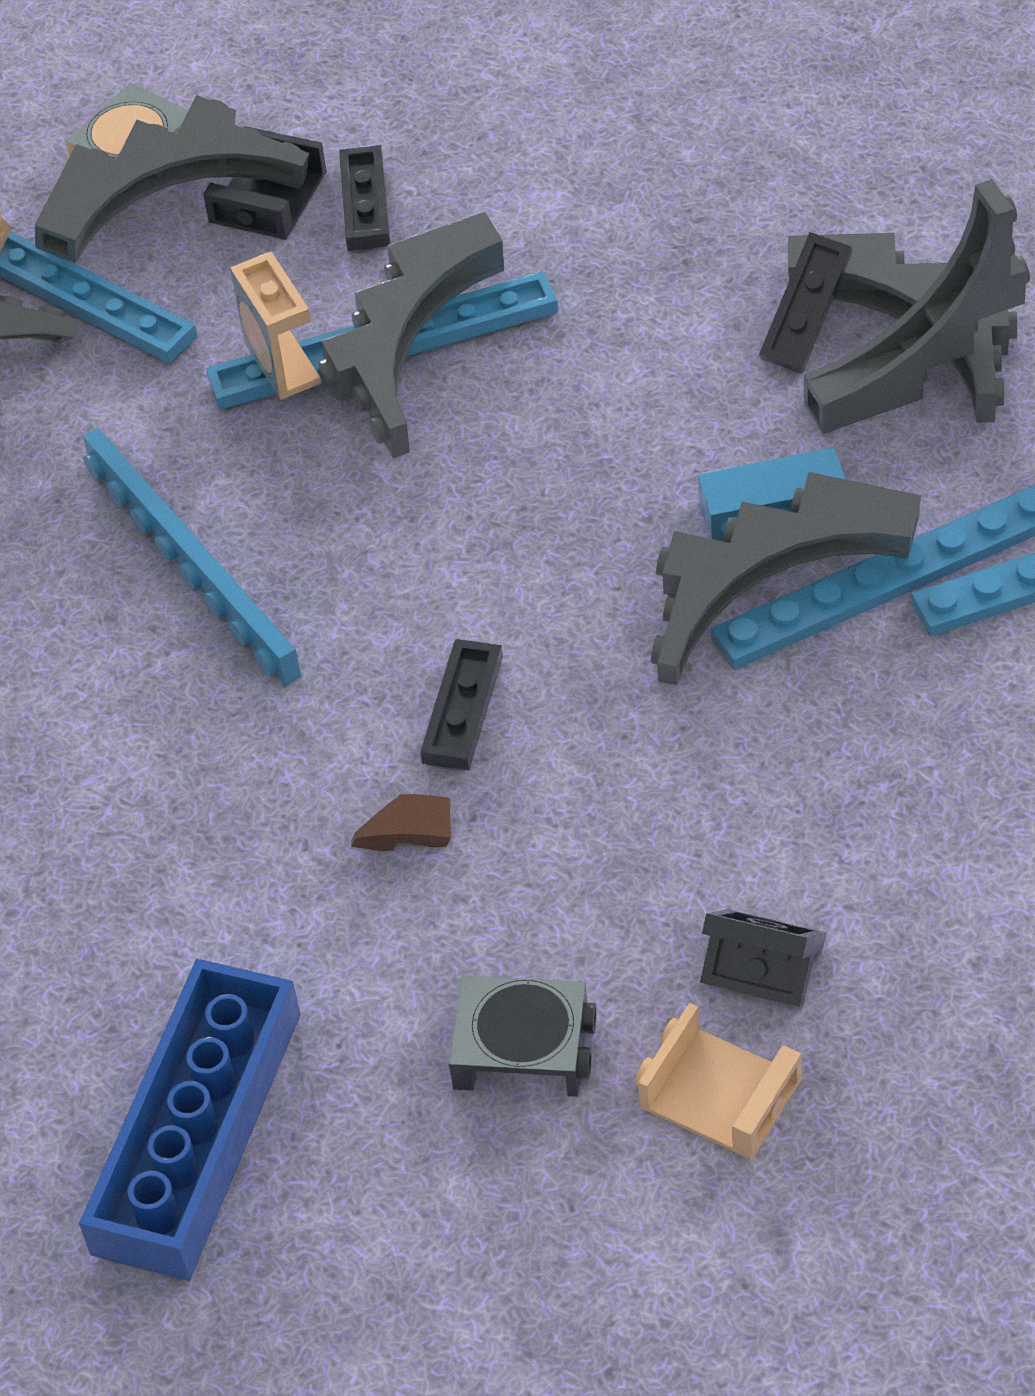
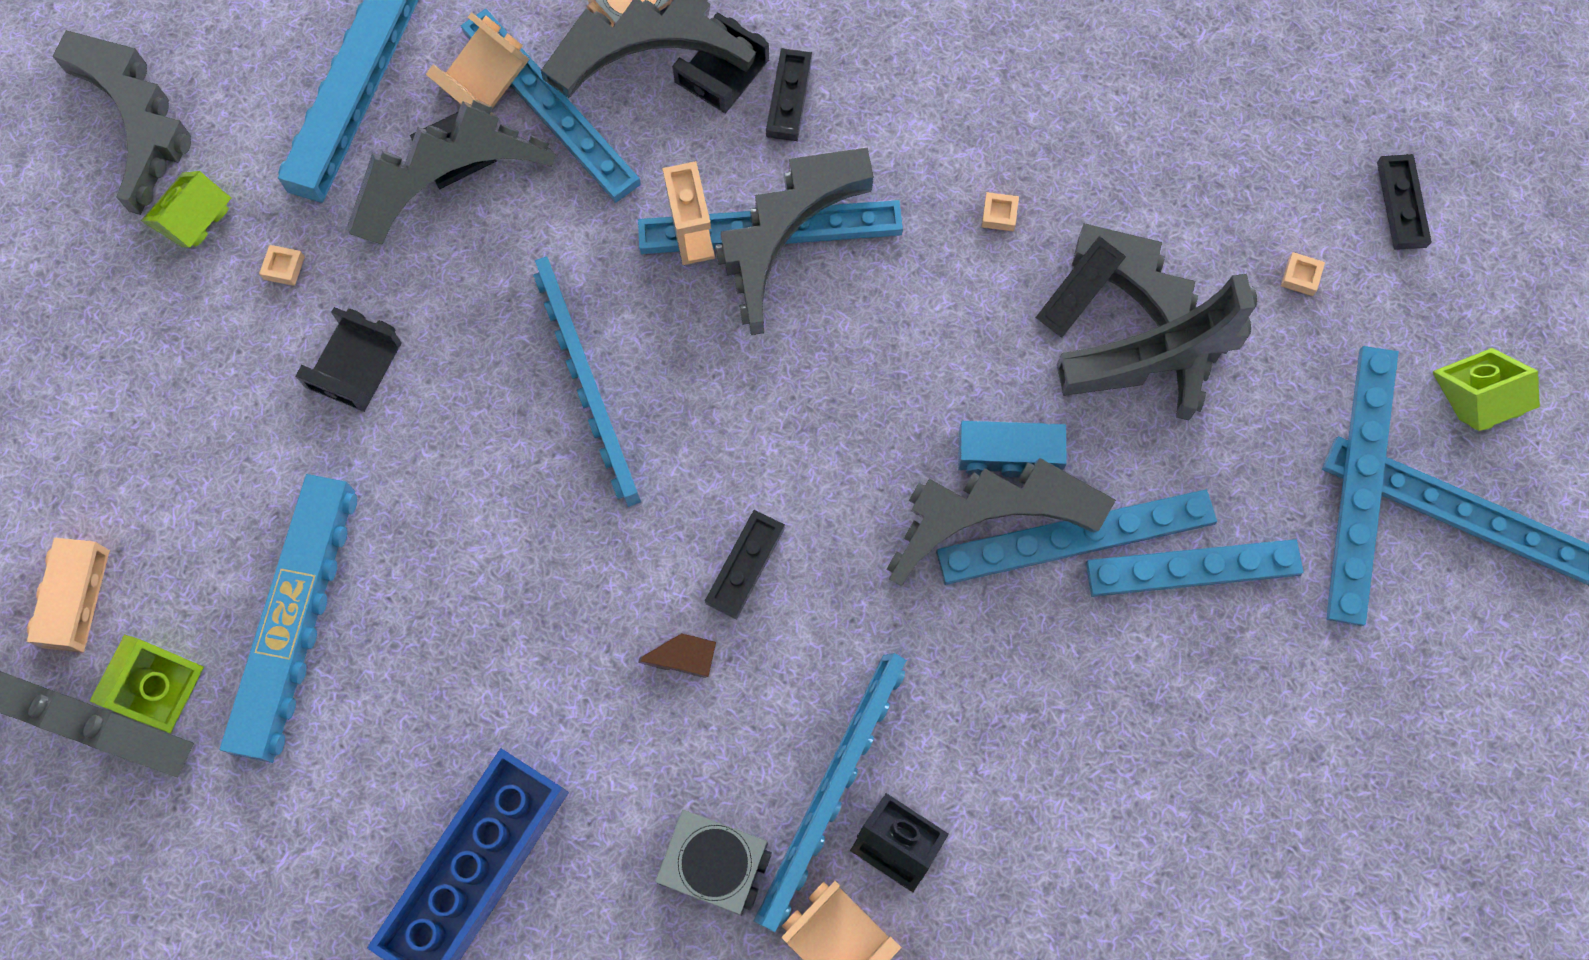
camera: 10 degrees right, 20 degrees up
(651, 935) = (825, 803): none -> dark azure plate
(678, 257) = (1000, 211): none -> light nougat plate

